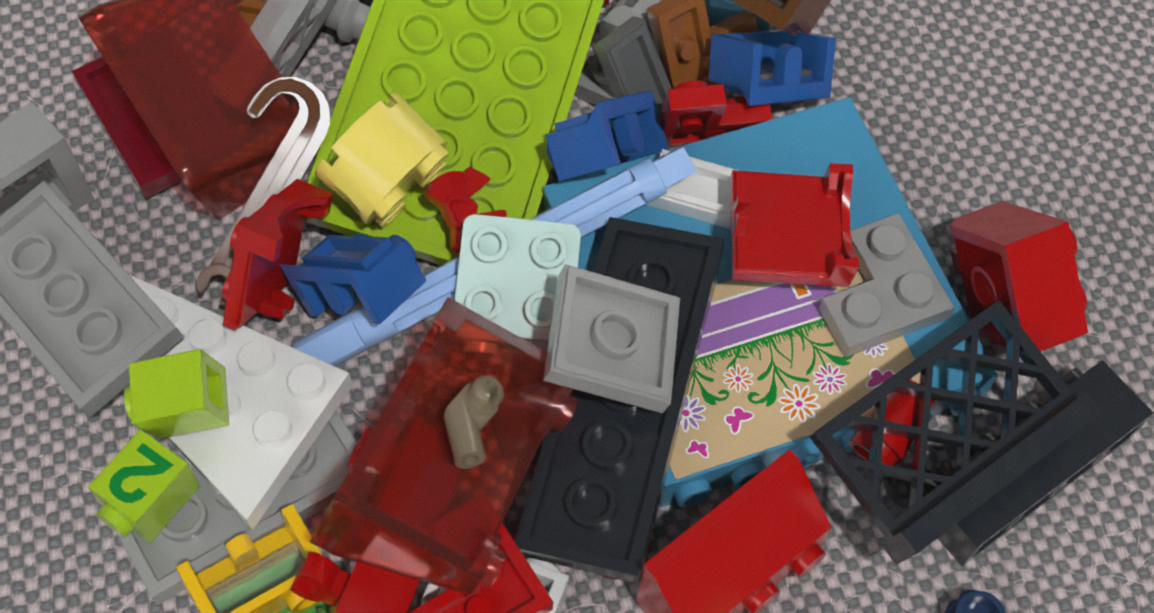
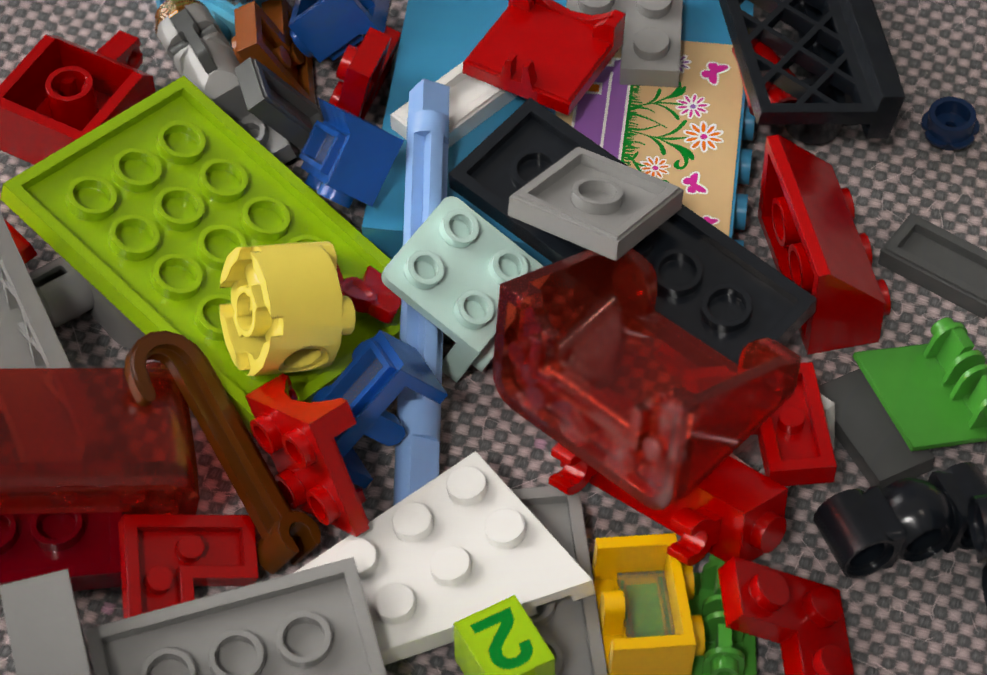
camera: 60 degrees left, 10 degrees down
(161, 210) = (174, 552): none -> red plate
(177, 394) = (434, 576): lime brick -> none
(468, 416) = (601, 348): dark tan arm -> none

